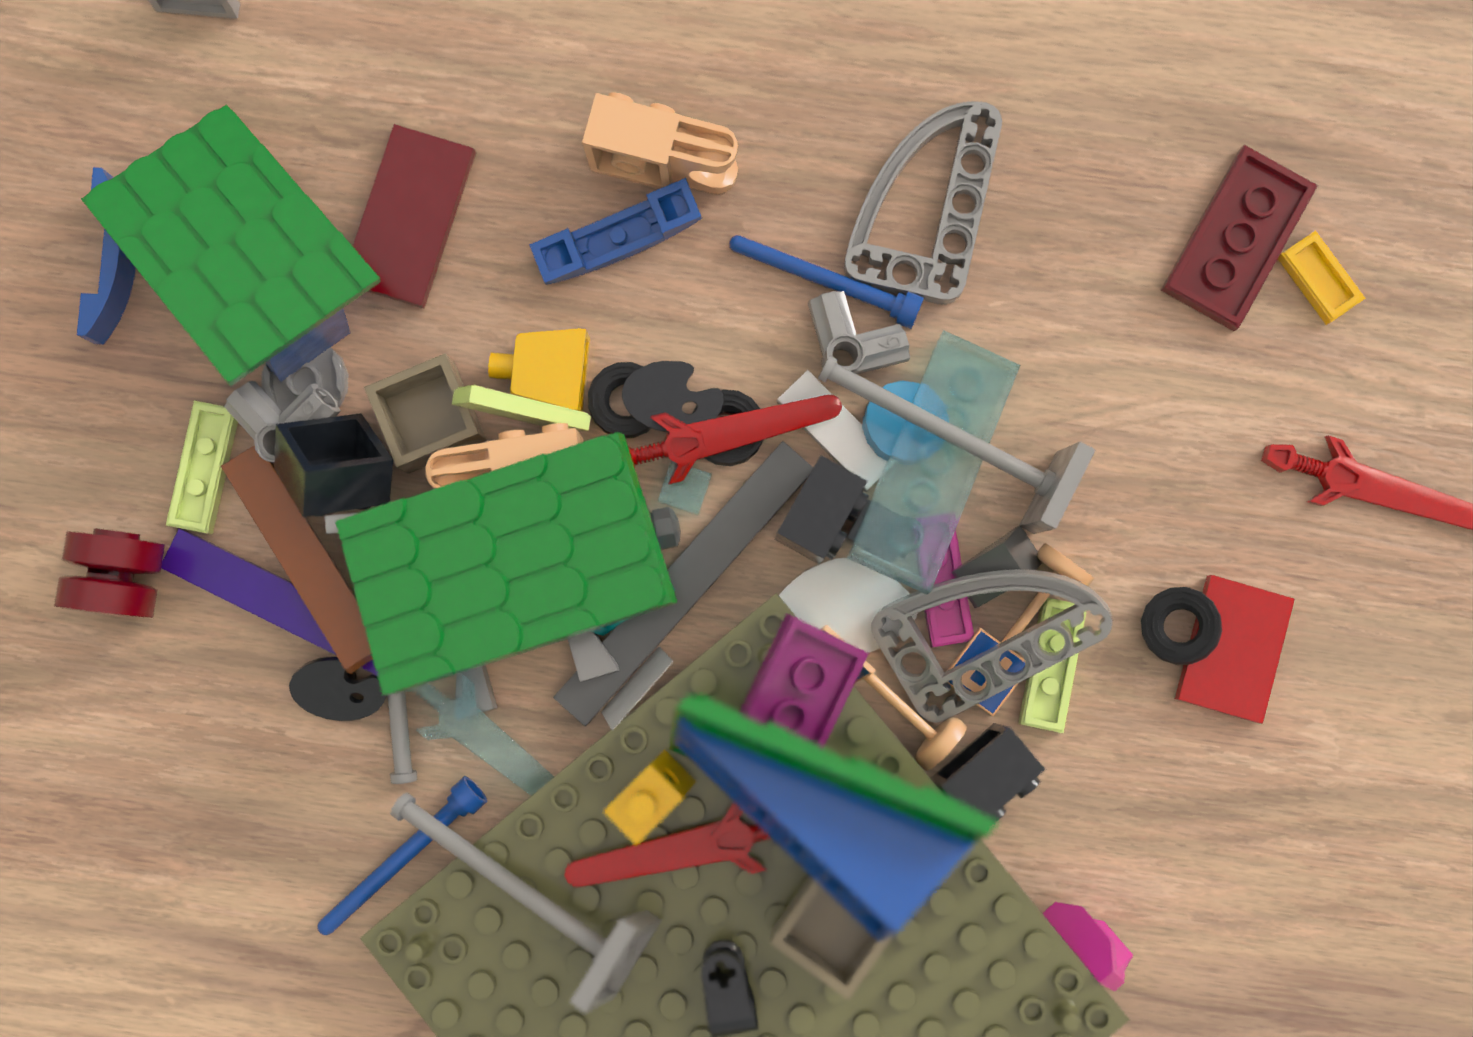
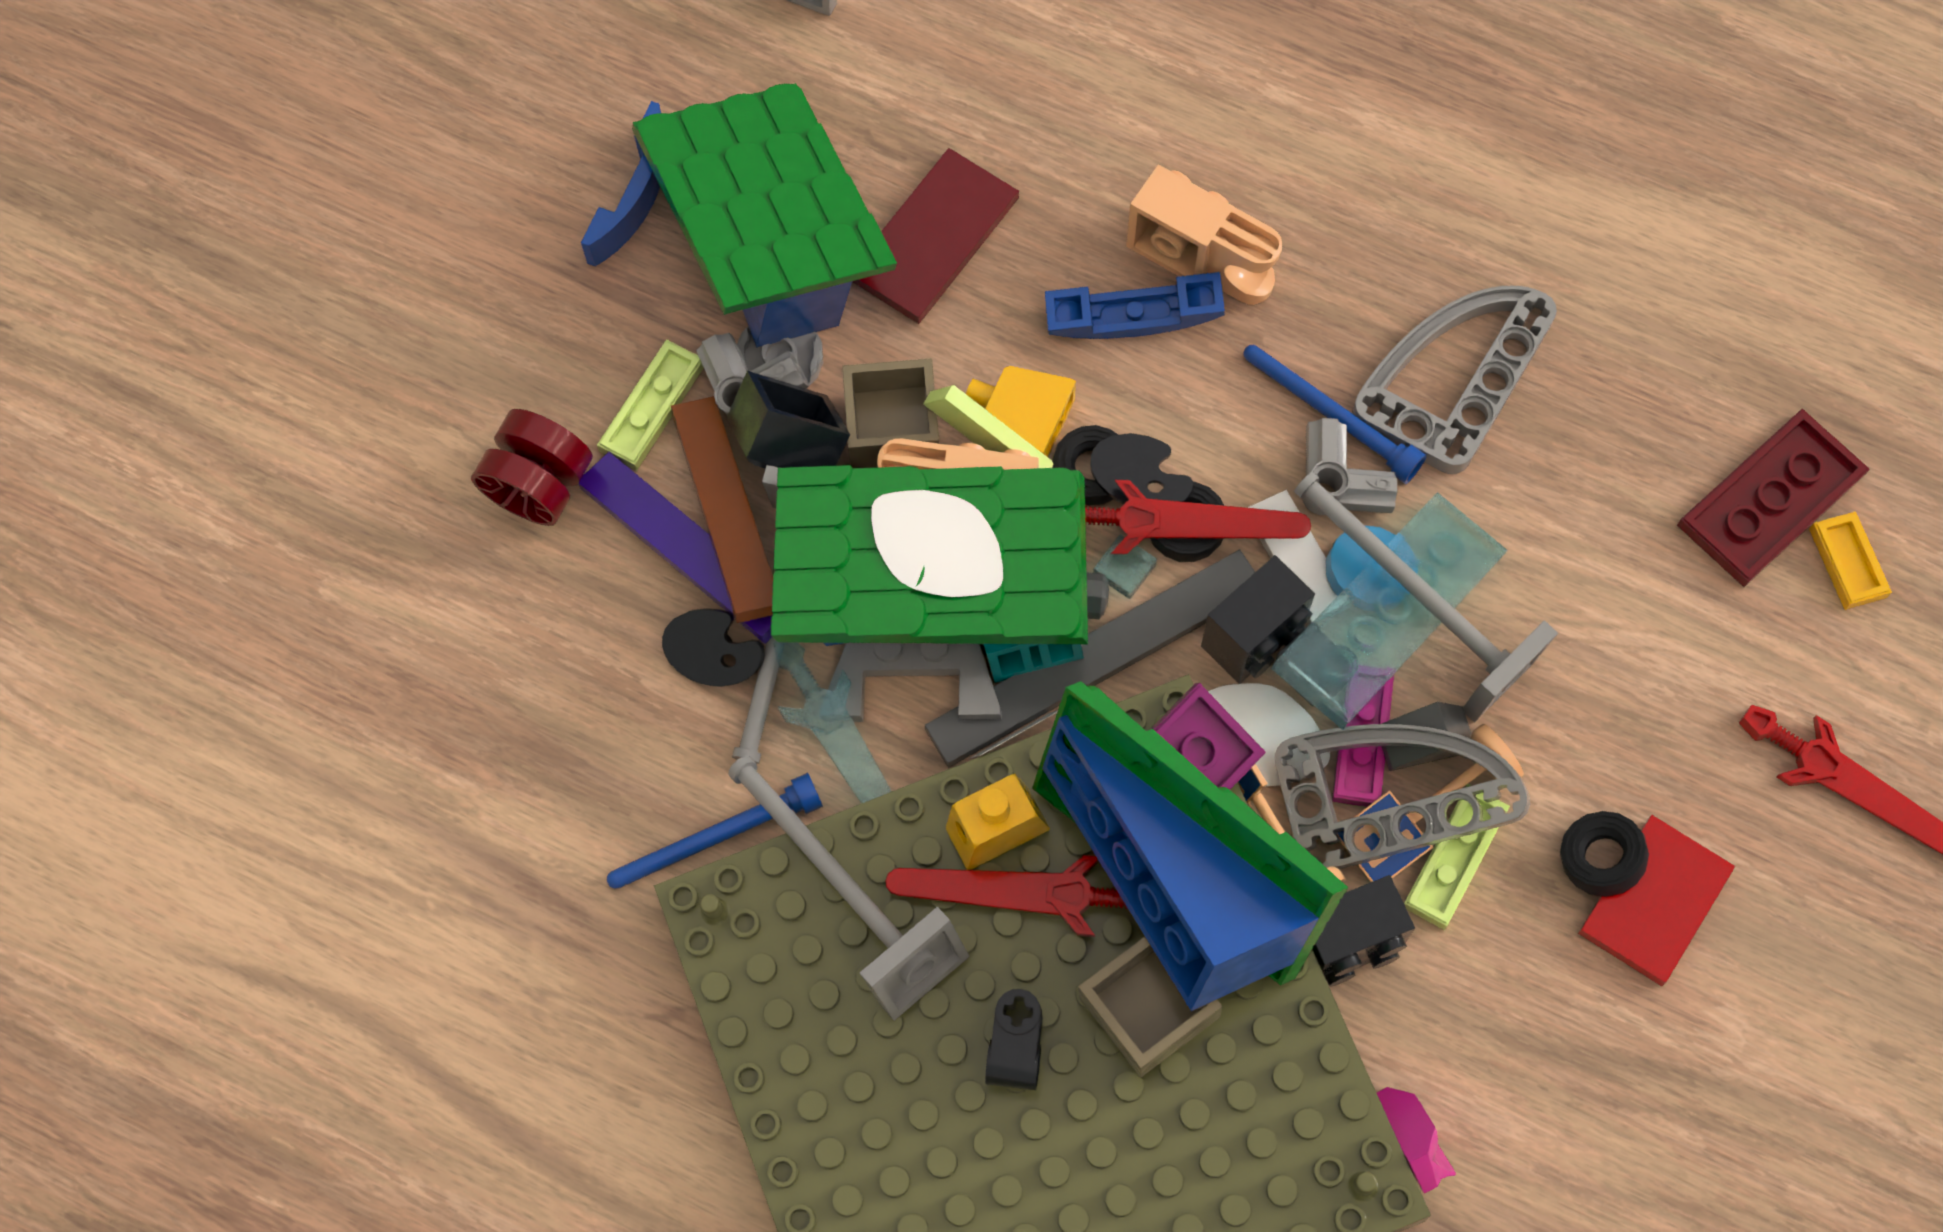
camera: 20 degrees right, 15 degrees down
(510, 544) = (943, 537): none -> white sticker

